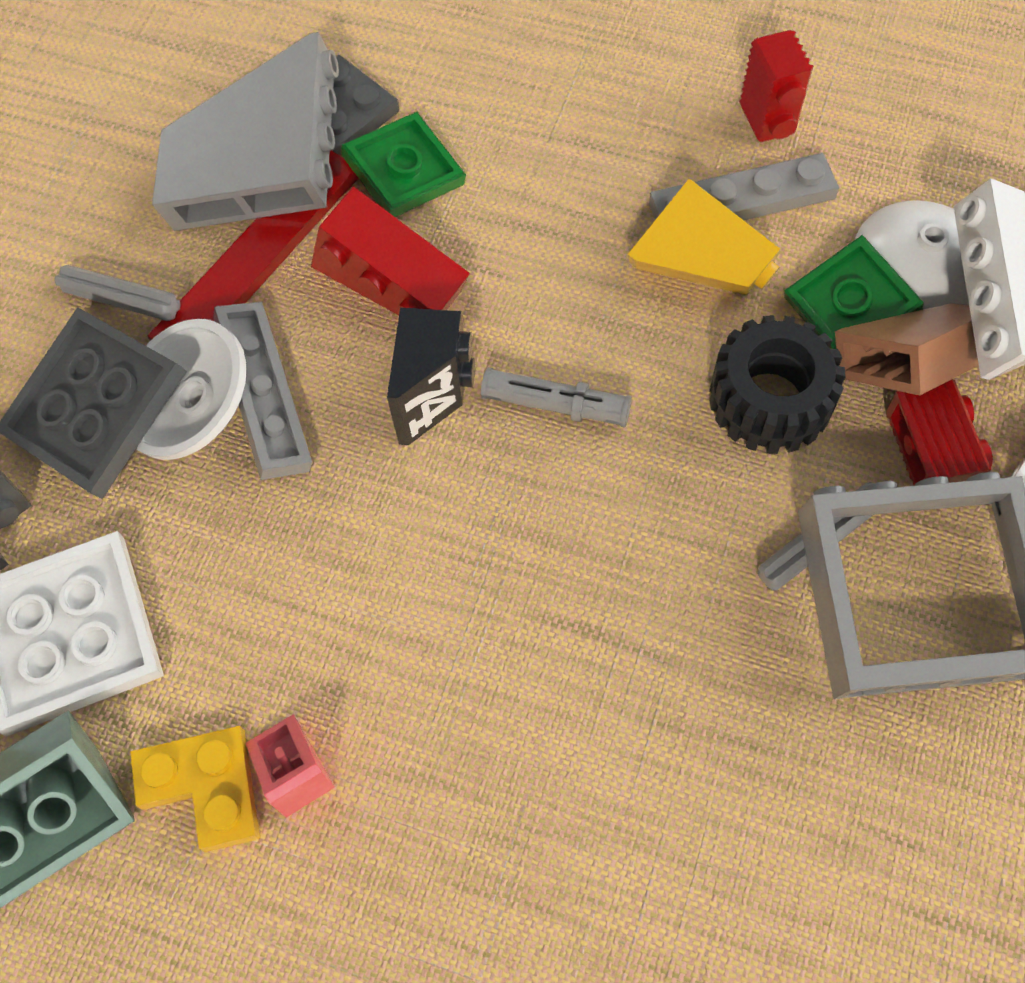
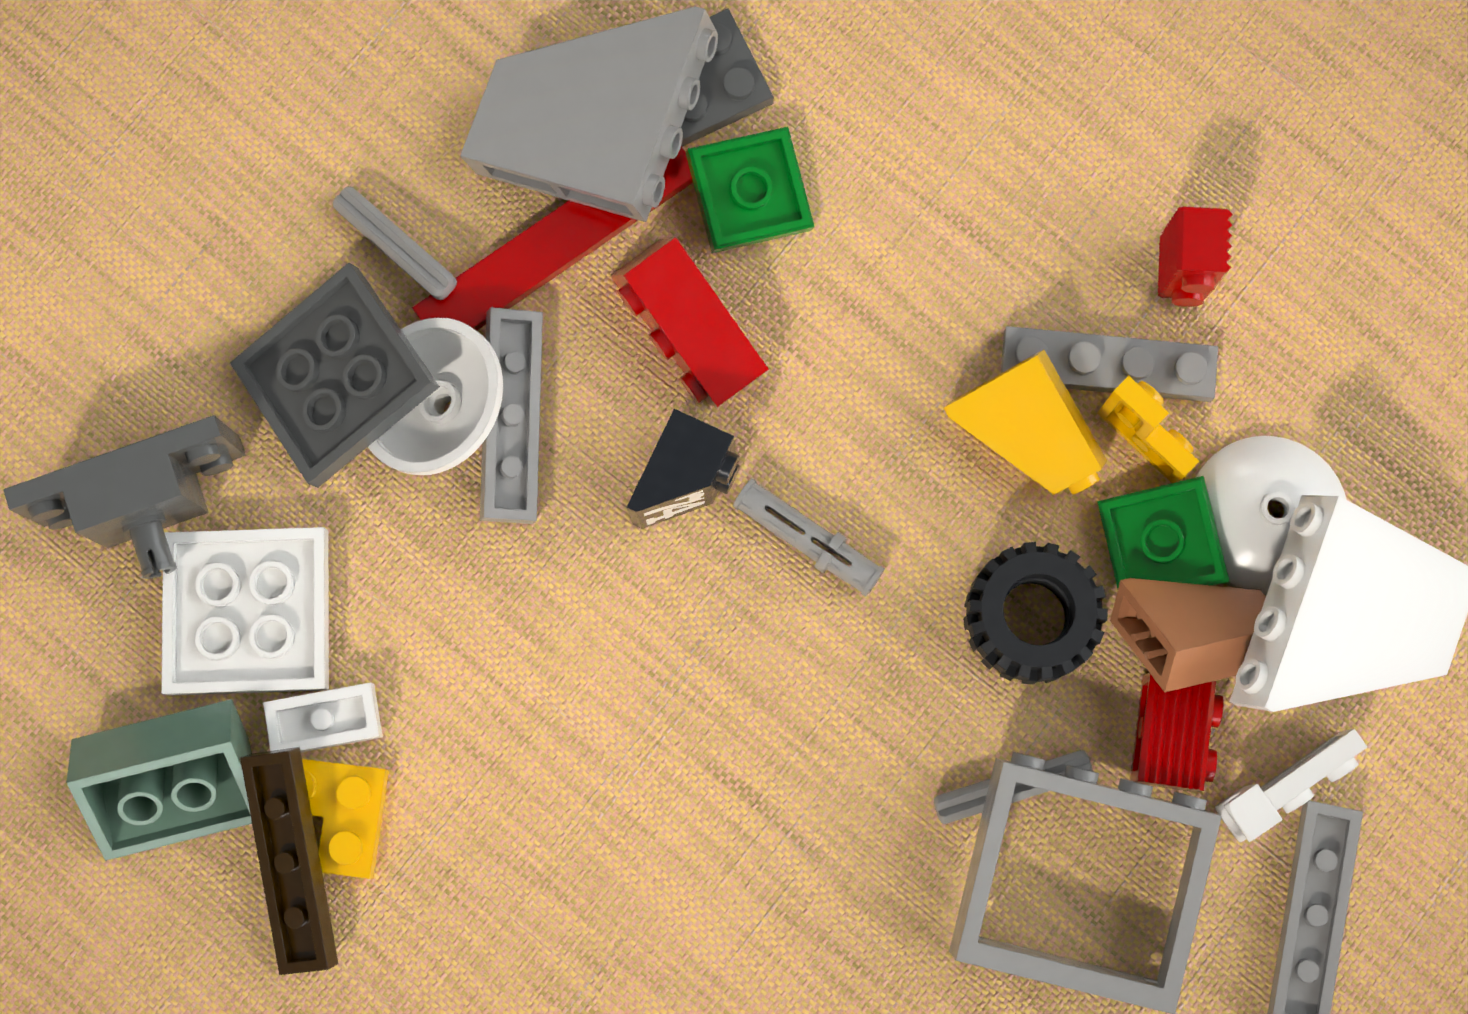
camera: 20 degrees right, 15 degrees up
(164, 702) = (323, 718): none -> white plate
(168, 845) = (289, 861): none -> dark brown plate
(288, 767) = (417, 822): coral slope -> none
(789, 222) = (1136, 415): none -> yellow plate

